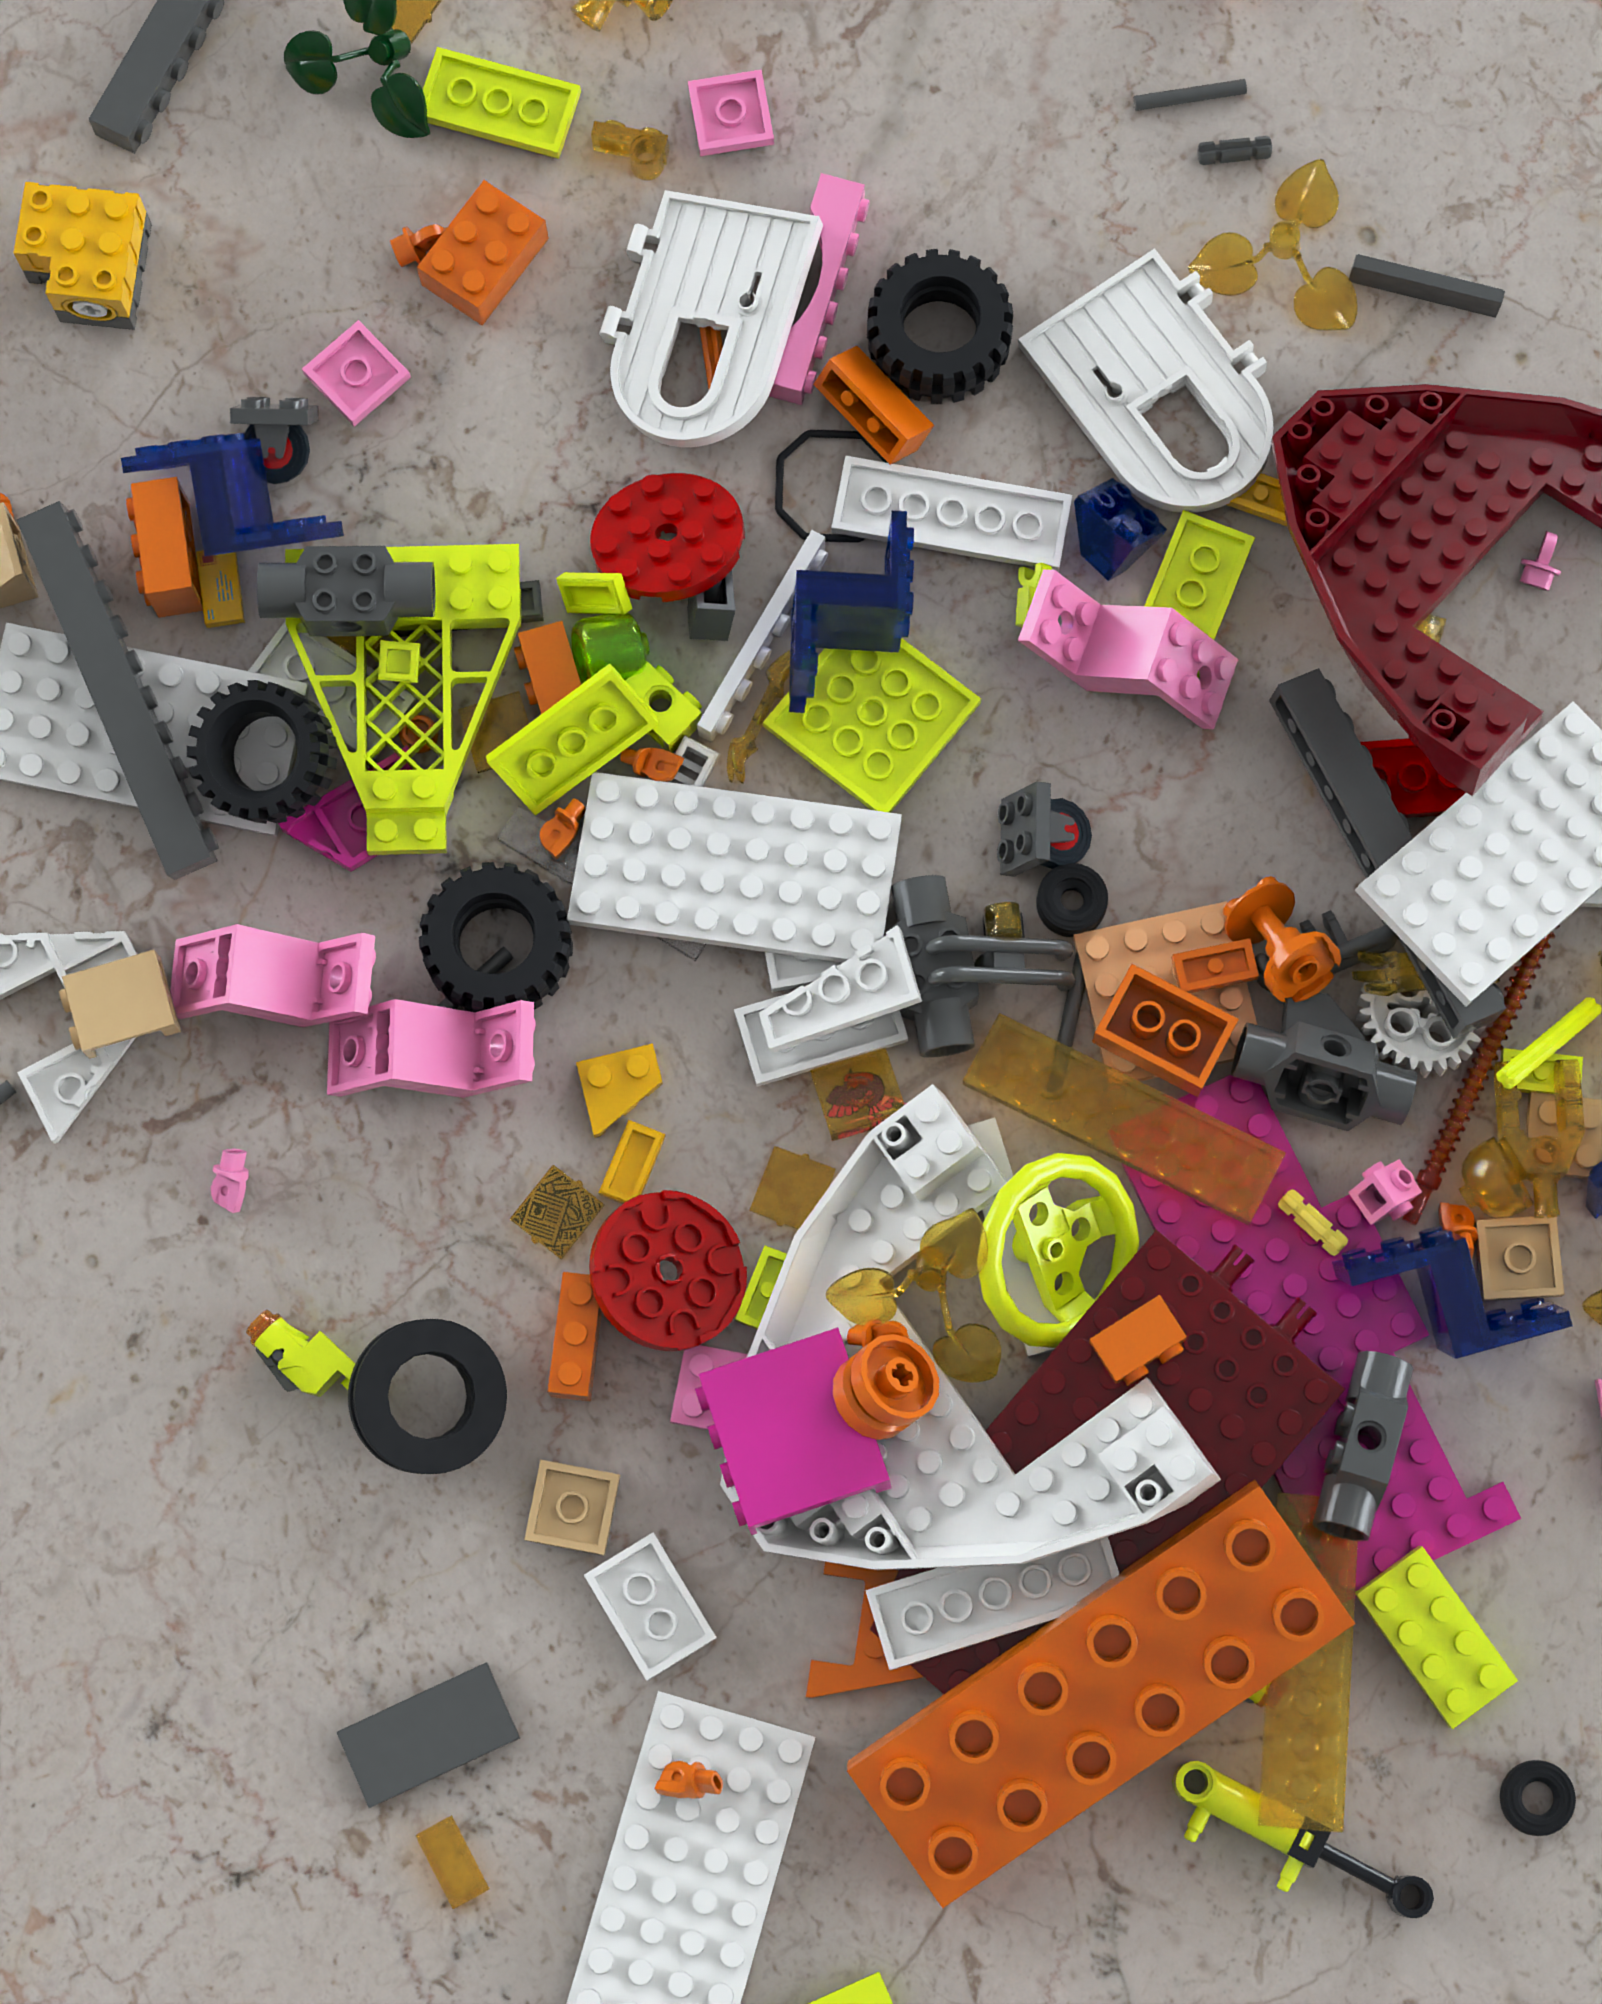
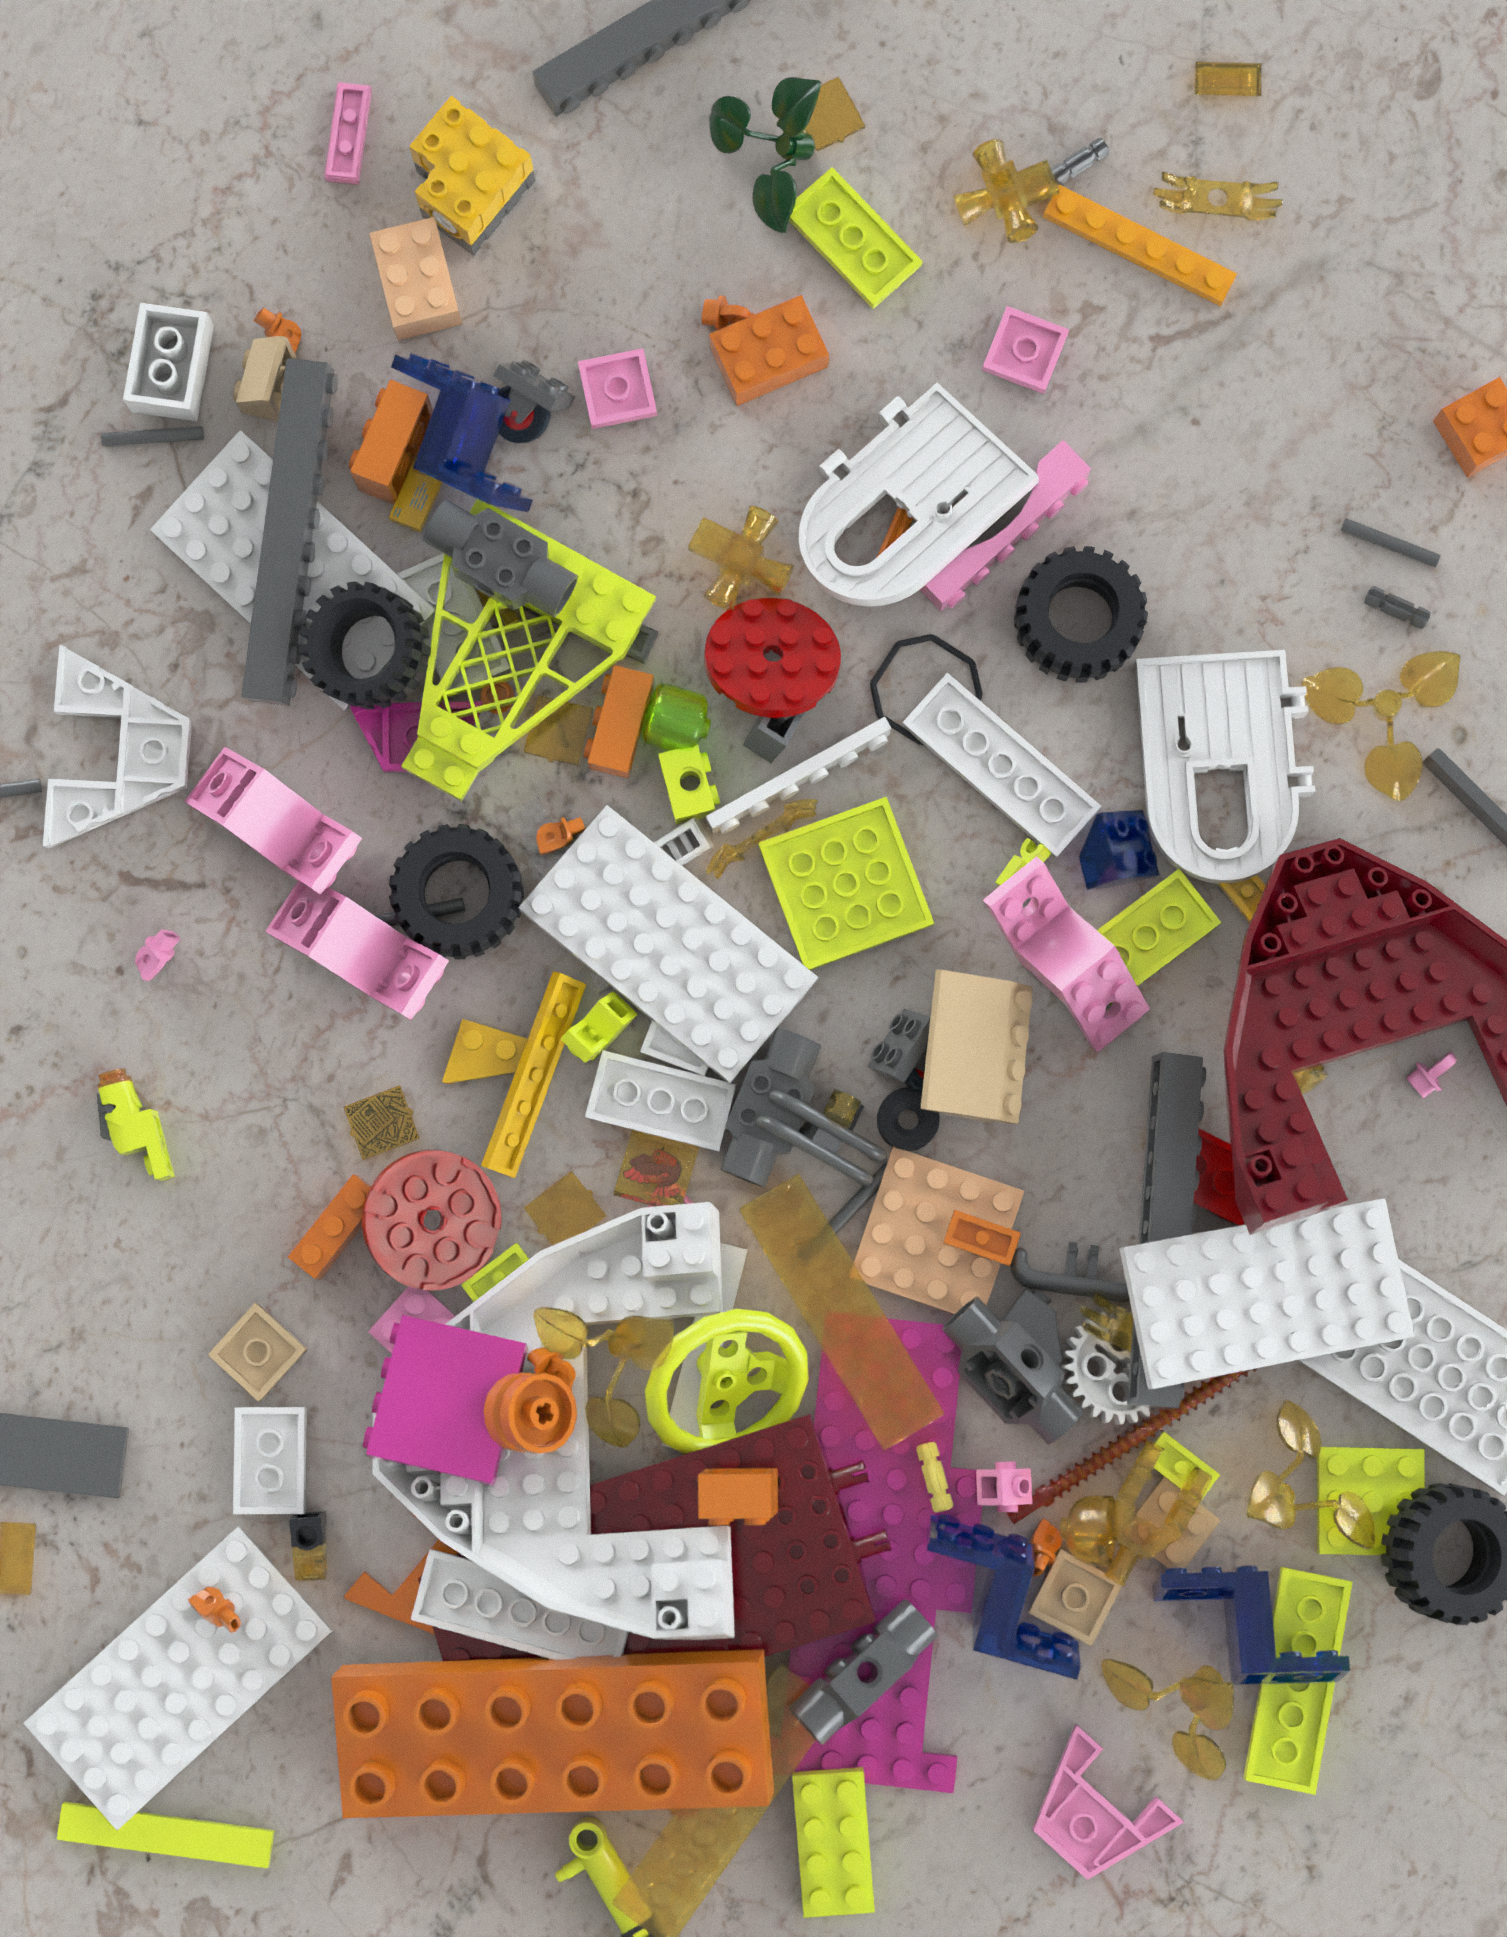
camera: 30 degrees right, 5 degrees up
(92, 380) = (415, 278): none -> light nougat brick
(118, 1002) = (150, 773): tan panel -> none
(399, 661) = (510, 635): neon yellow tile -> none
(483, 1407) = (203, 1255): black tyre -> none
(572, 739) = (604, 773): neon yellow plate -> none
(576, 461) = (739, 557): none -> clear yellow brick
(594, 593) = (690, 668): neon yellow tile -> none
(620, 140) = (925, 319): clear yellow plate -> none
(632, 1162) = (458, 1120): yellow tile -> none
(653, 762) = (657, 825): orange piece -> none
(680, 1074) = (533, 1075): none -> yellow plate
(718, 988) = (599, 1027): none -> neon yellow brick
(742, 1666) = (309, 1545): none -> leg
(850, 611) = (872, 800): clear blue bracket -> none
(856, 991) = (699, 1094): white wing -> none
(873, 404) = (992, 646): orange brick -> none
(1098, 787) = (976, 1047): none -> tan slope
(1164, 1030) = (912, 1265): orange brick -> none
(1297, 962) = (1043, 1275): orange piece -> none
(1548, 1043) = (1198, 1450): neon yellow axle -> none

